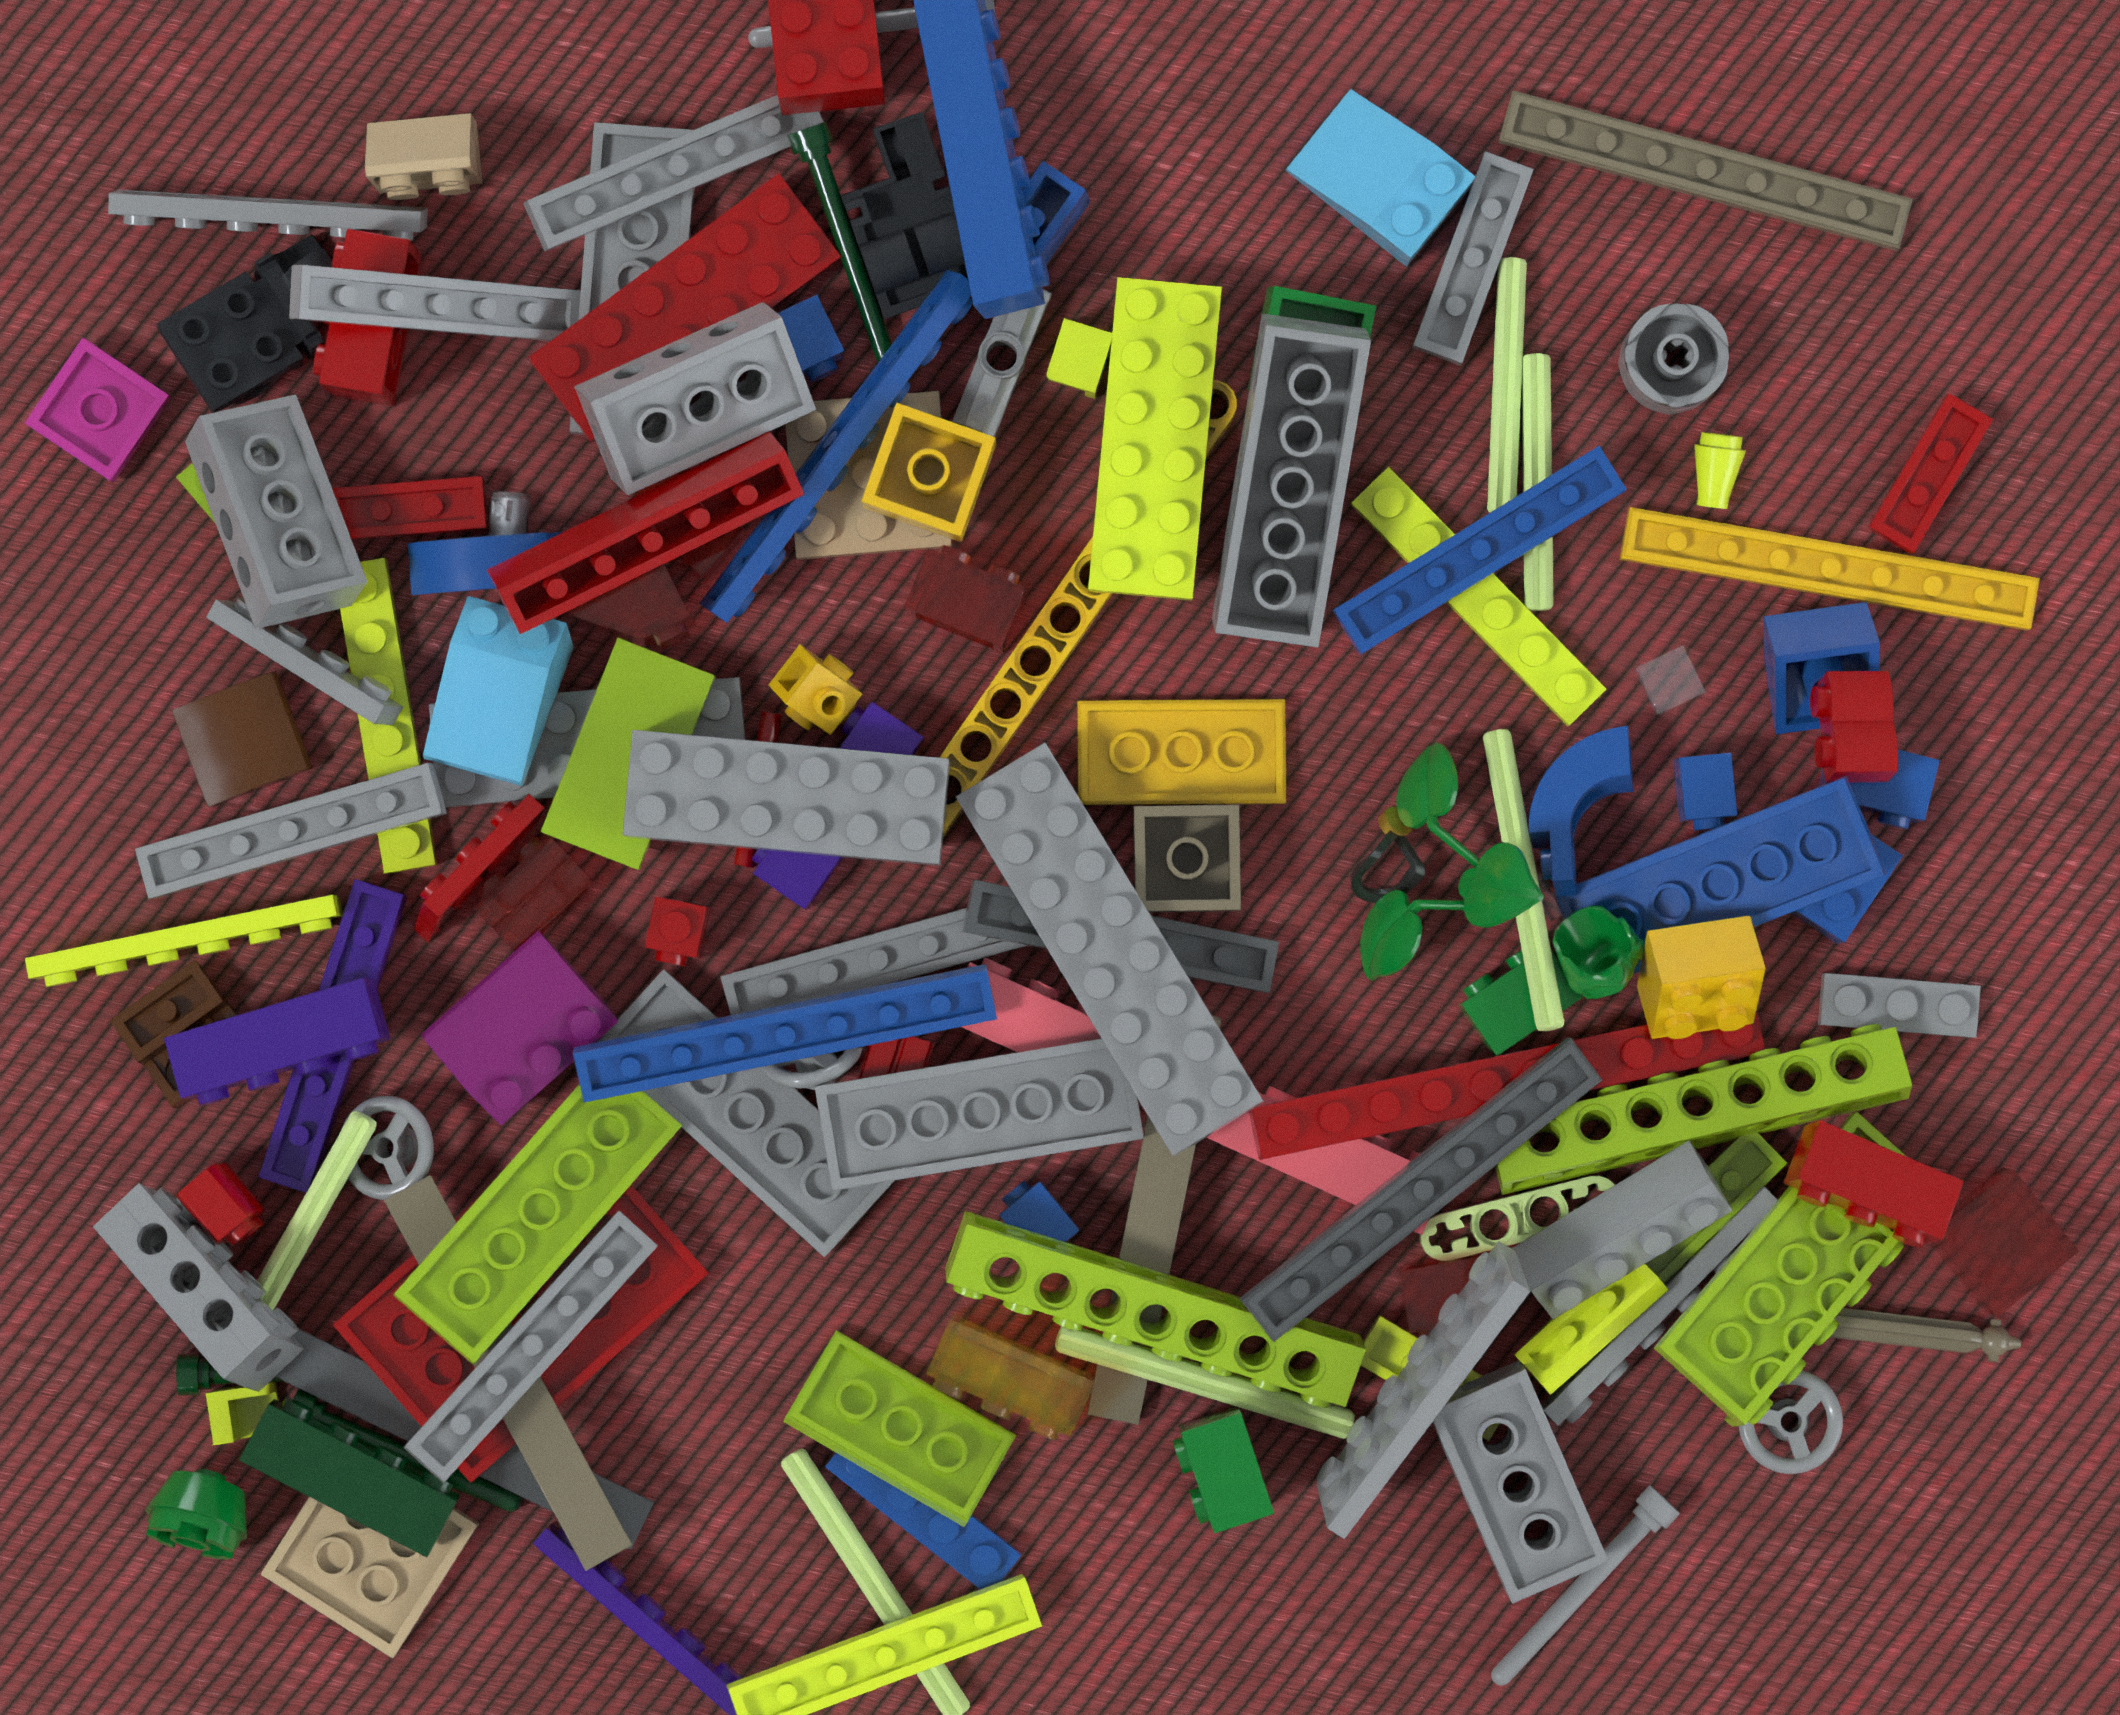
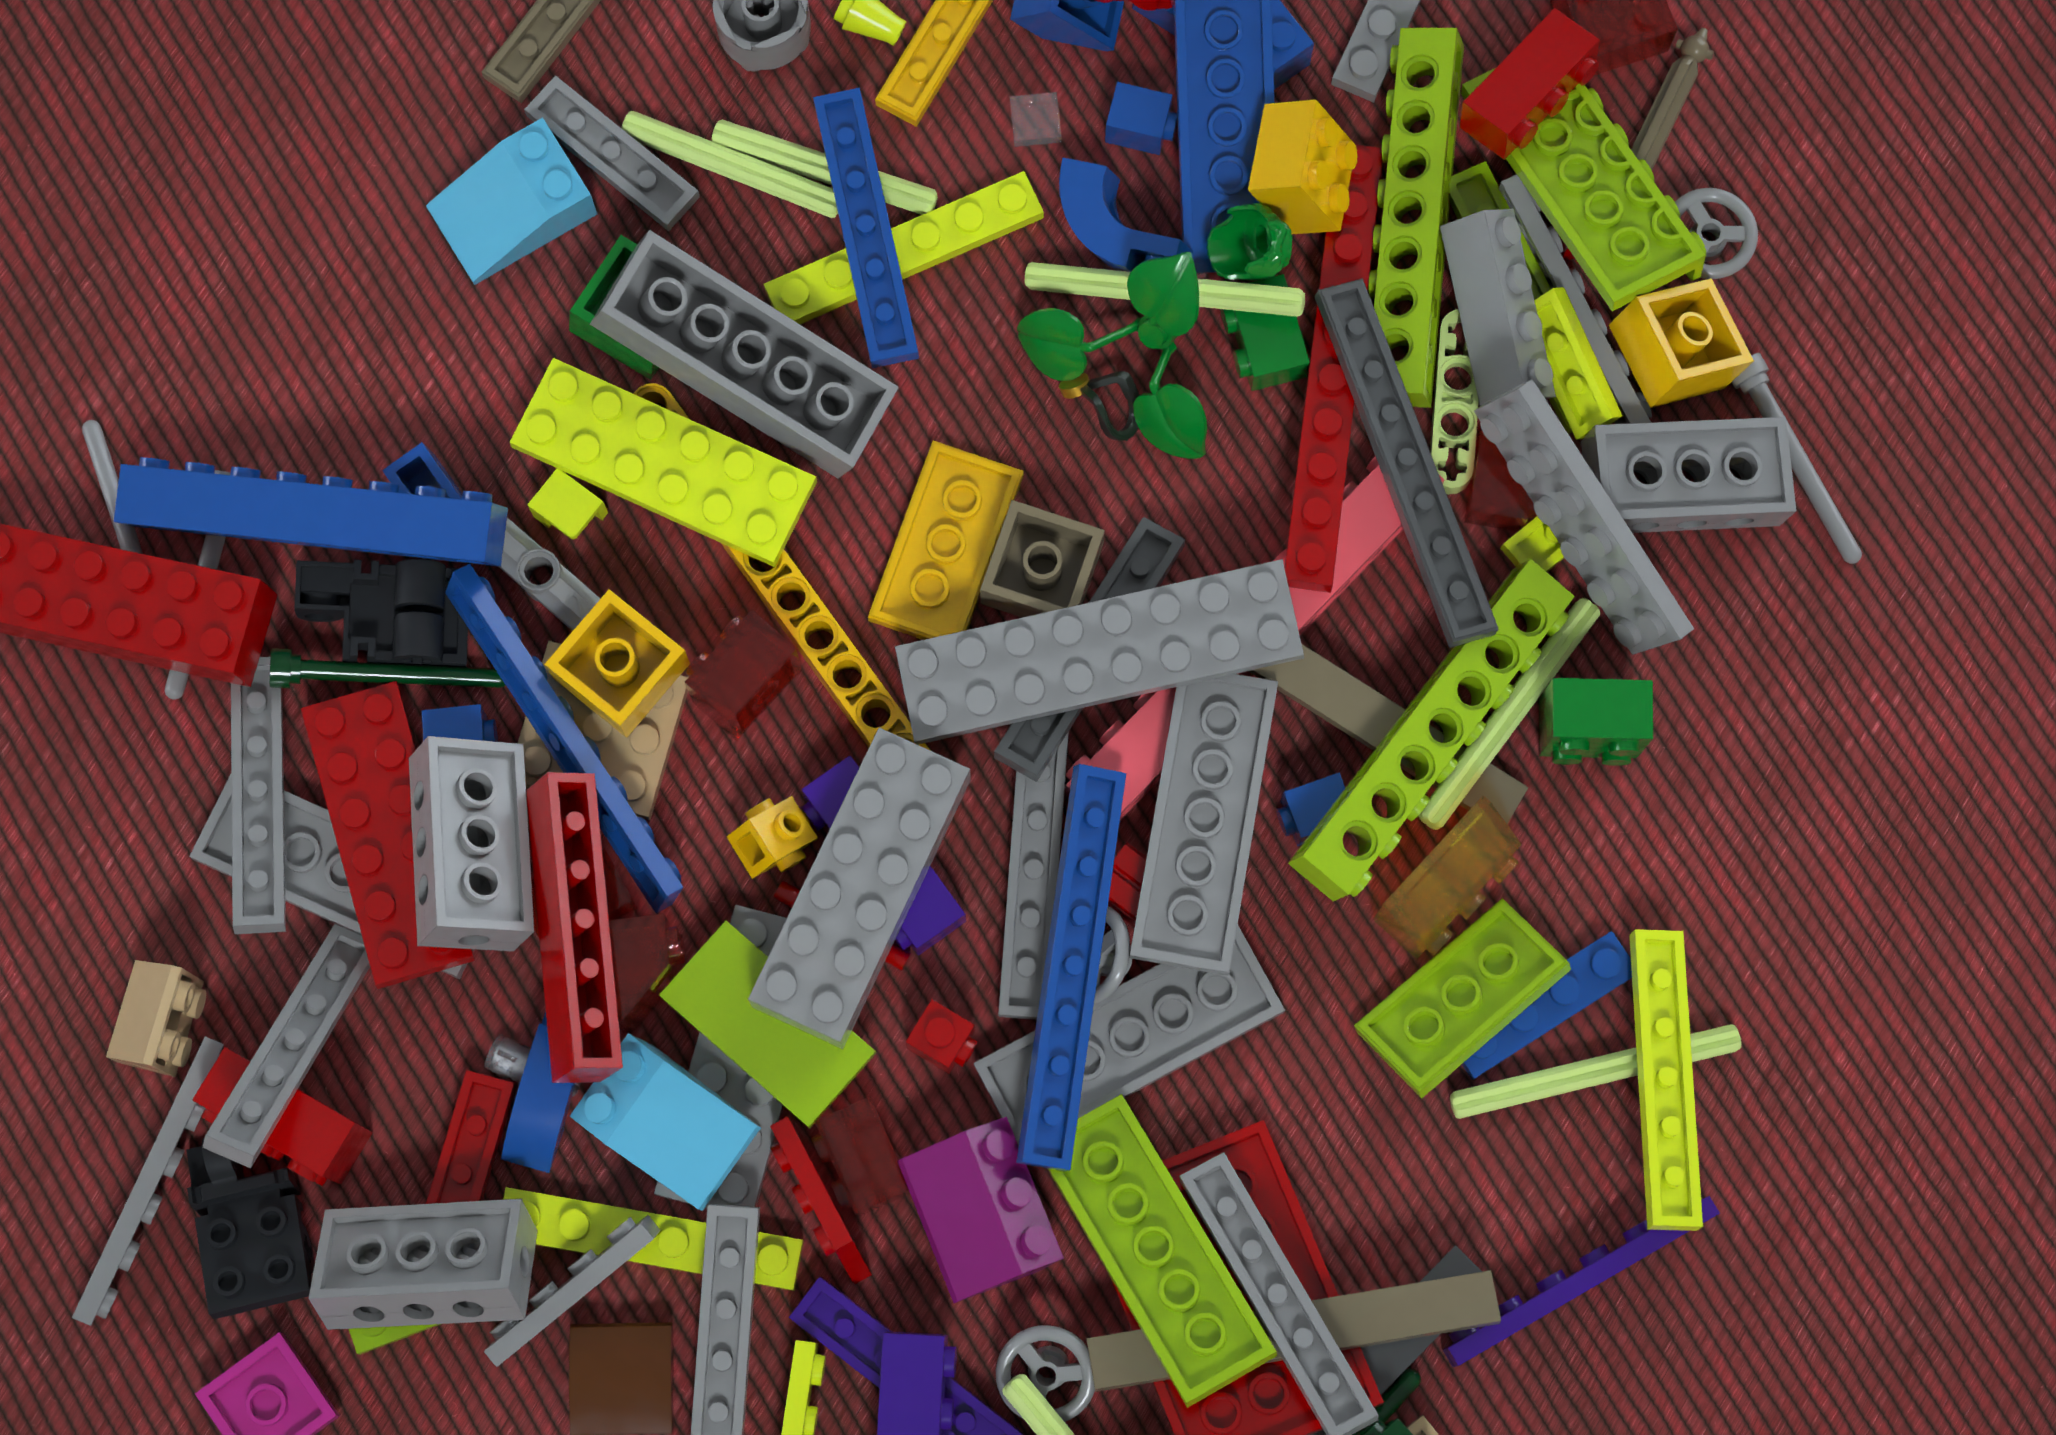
camera: 75 degrees left, 10 degrees down
(1654, 1429) = (1680, 342): none -> yellow brick

